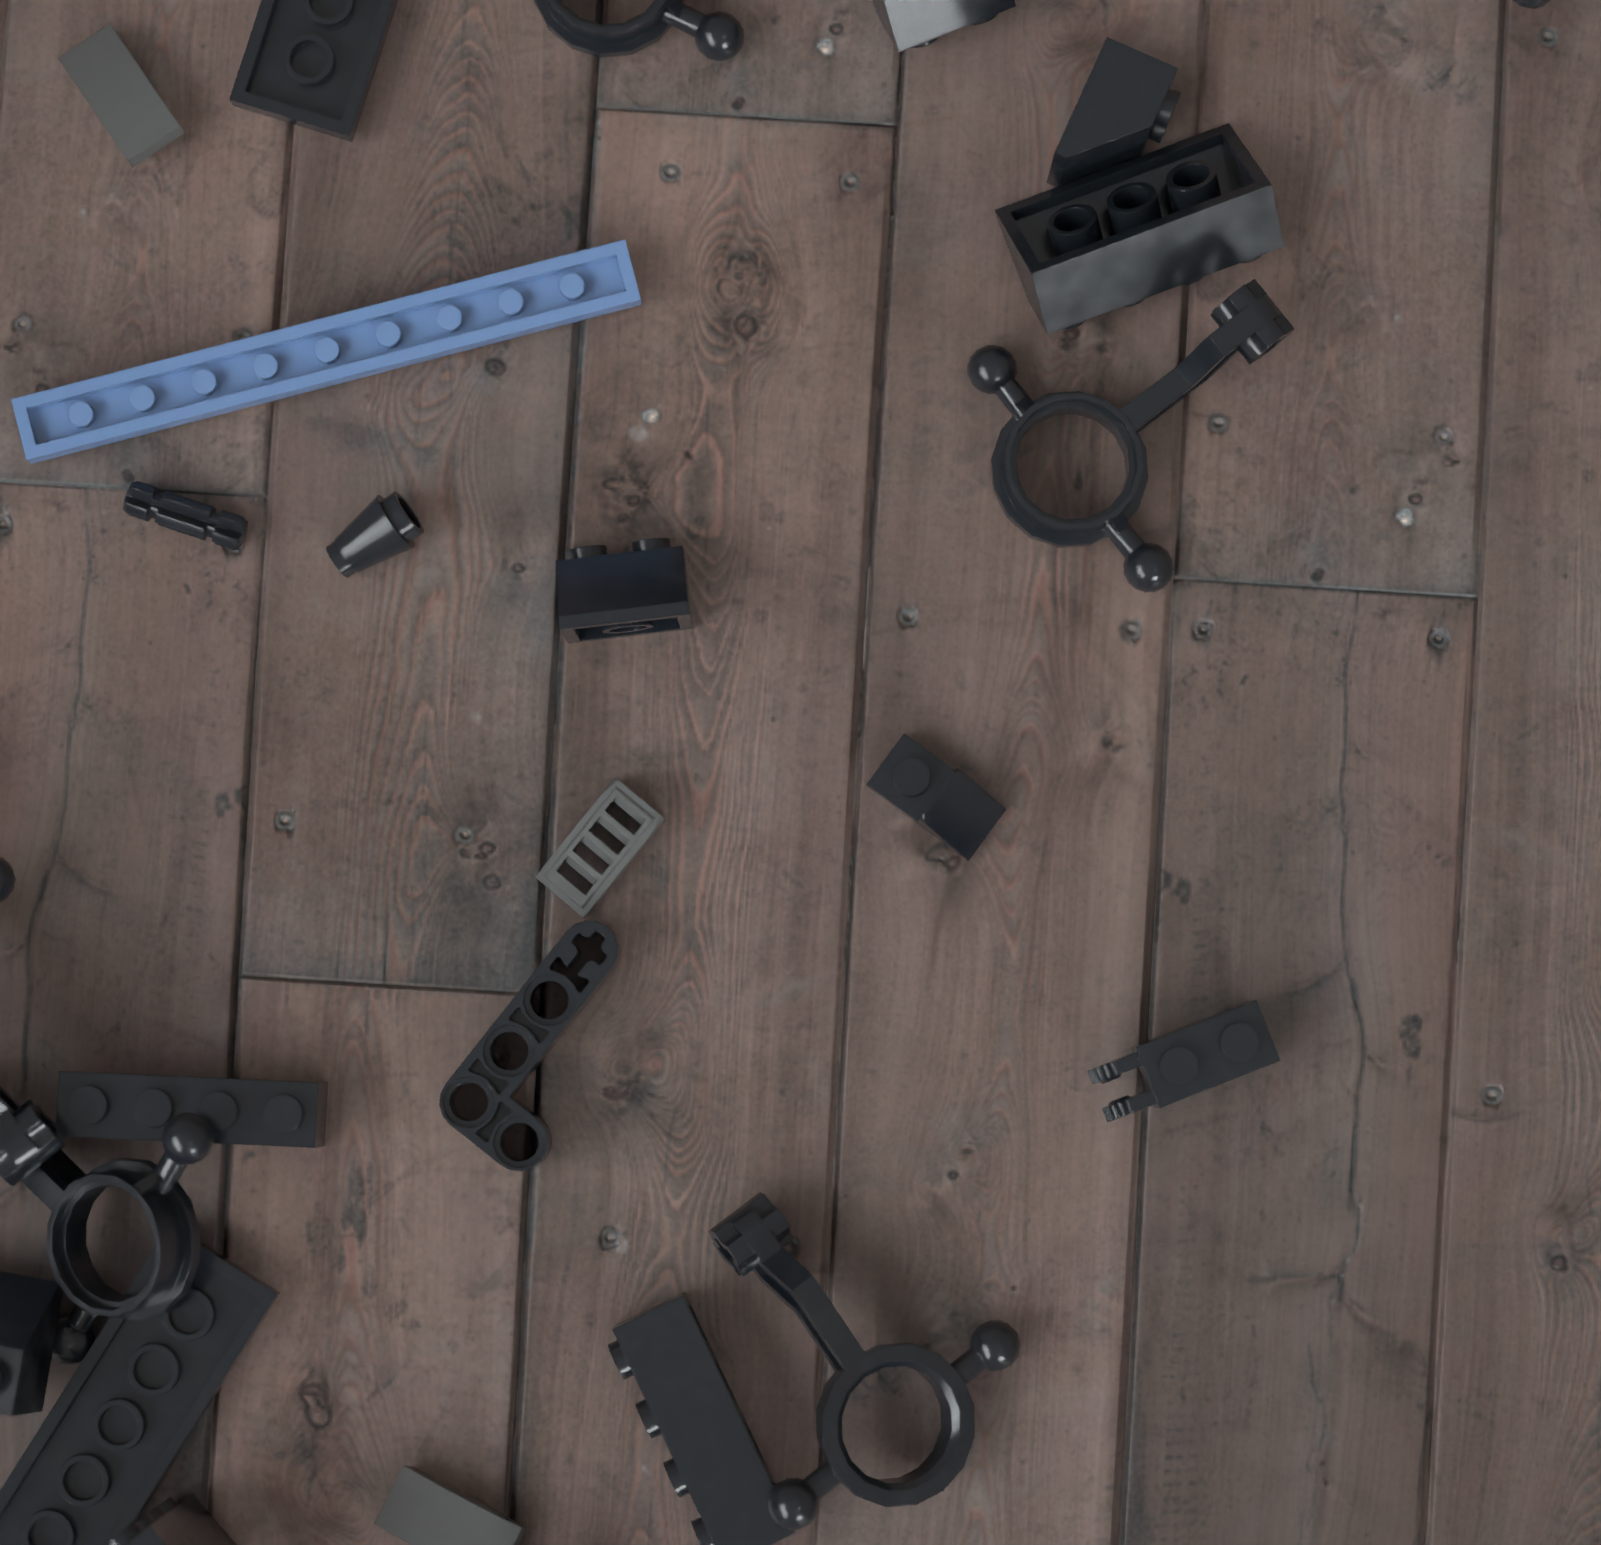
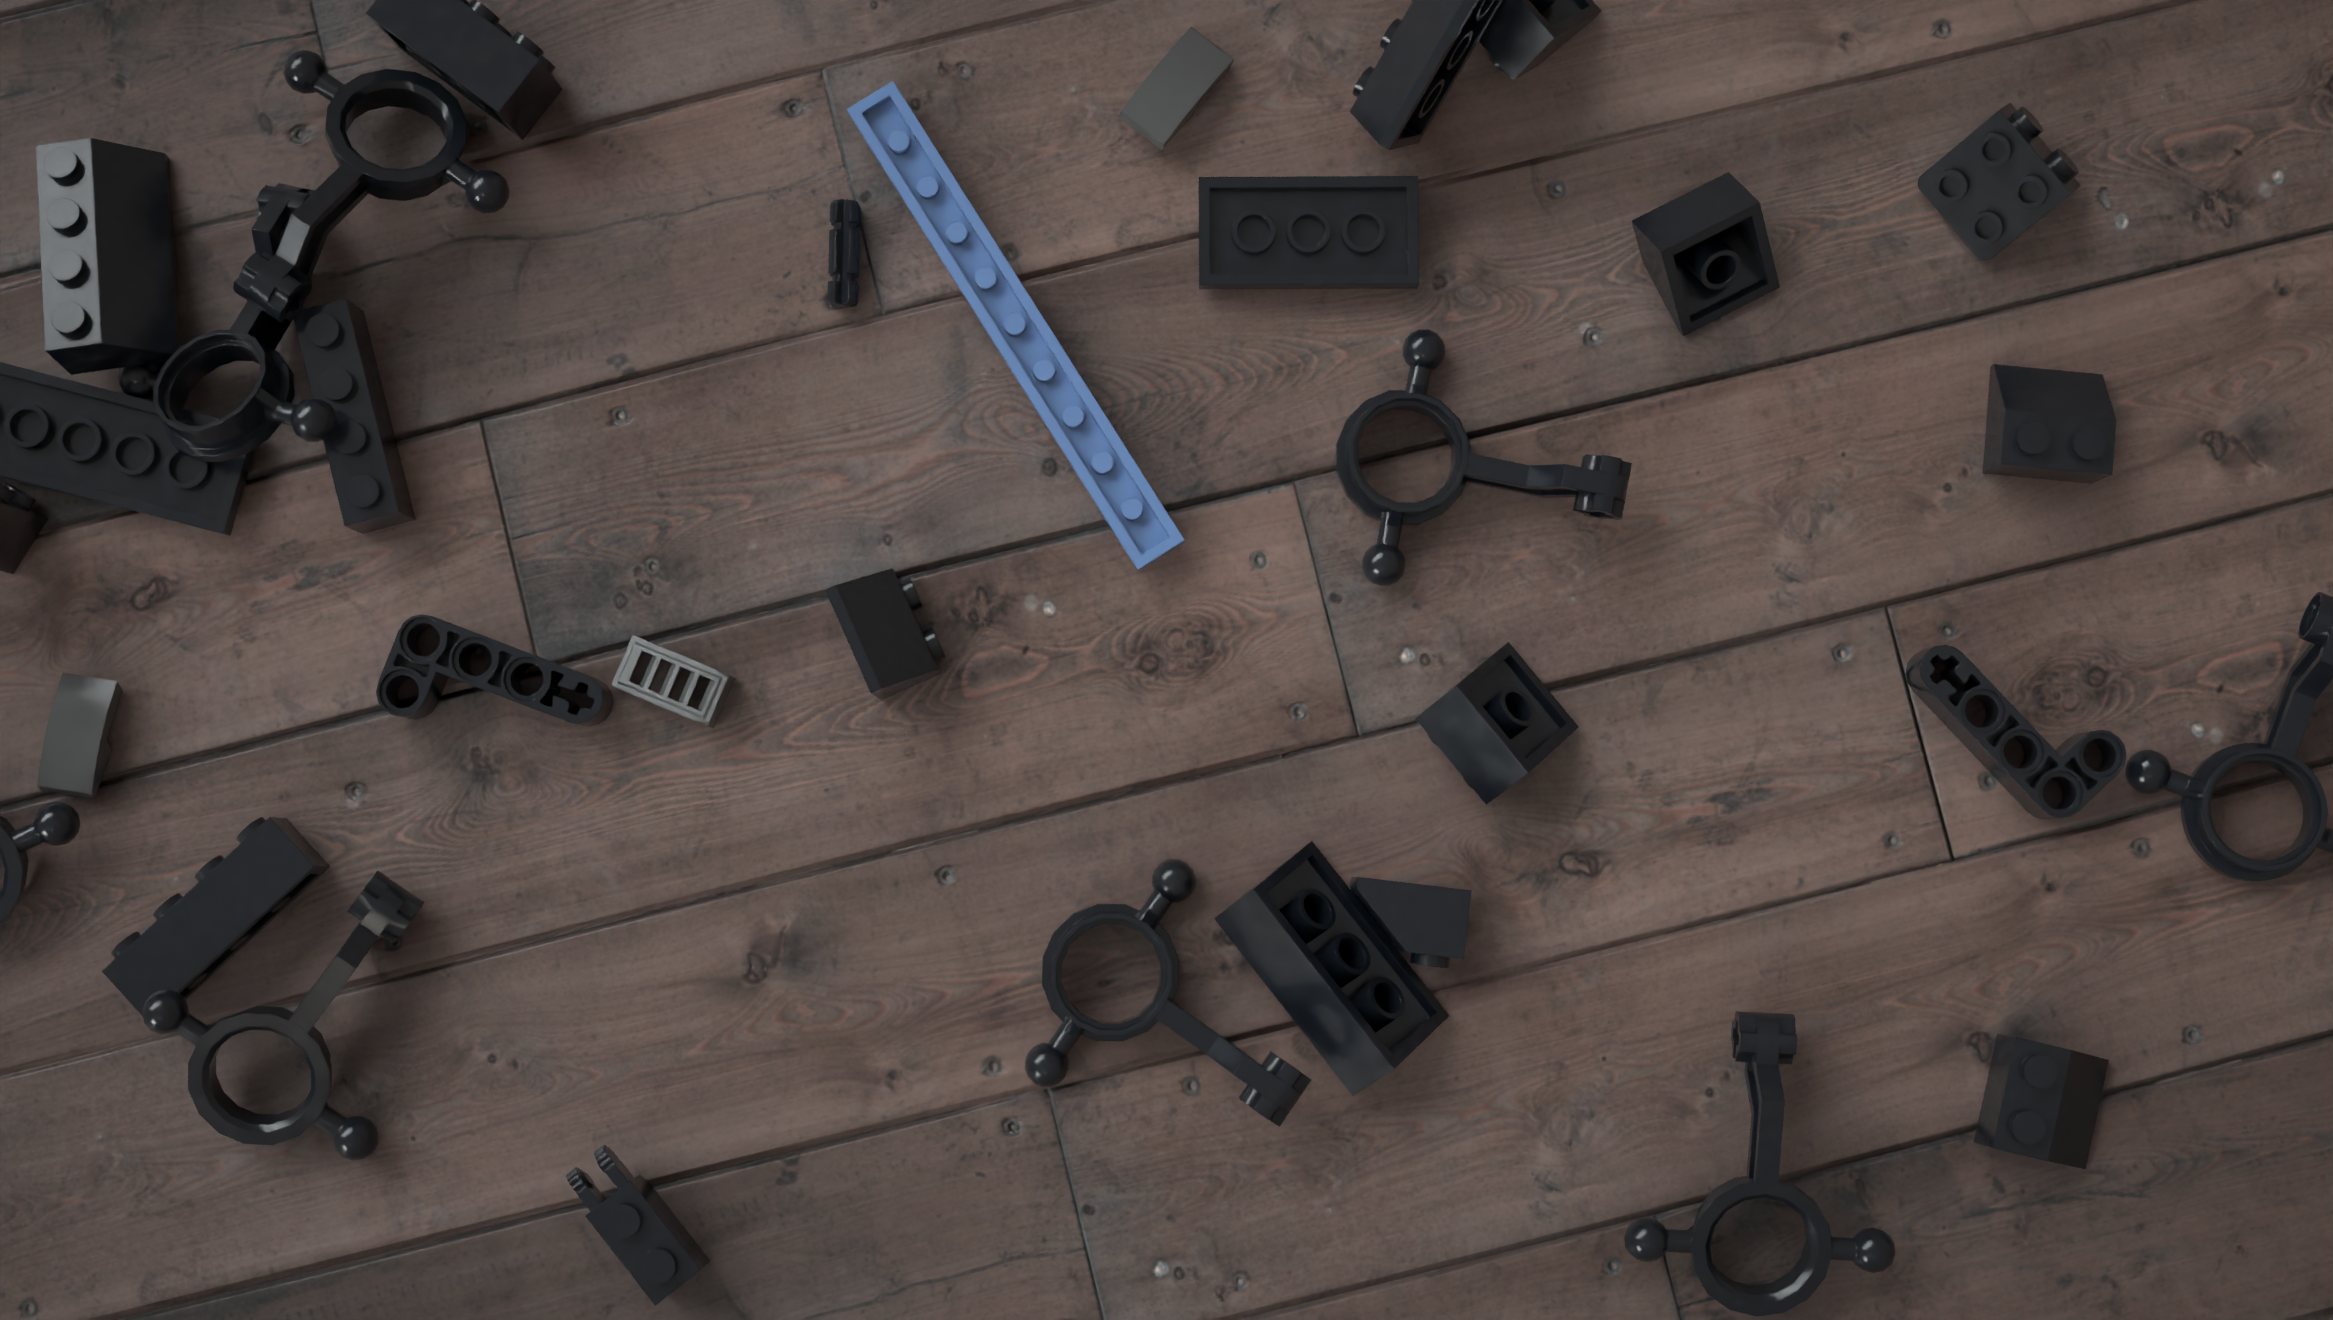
camera: 70 degrees right, 0 degrees up
(375, 535) = (874, 414): black cone -> none
(936, 797) = (799, 946): black slope -> none

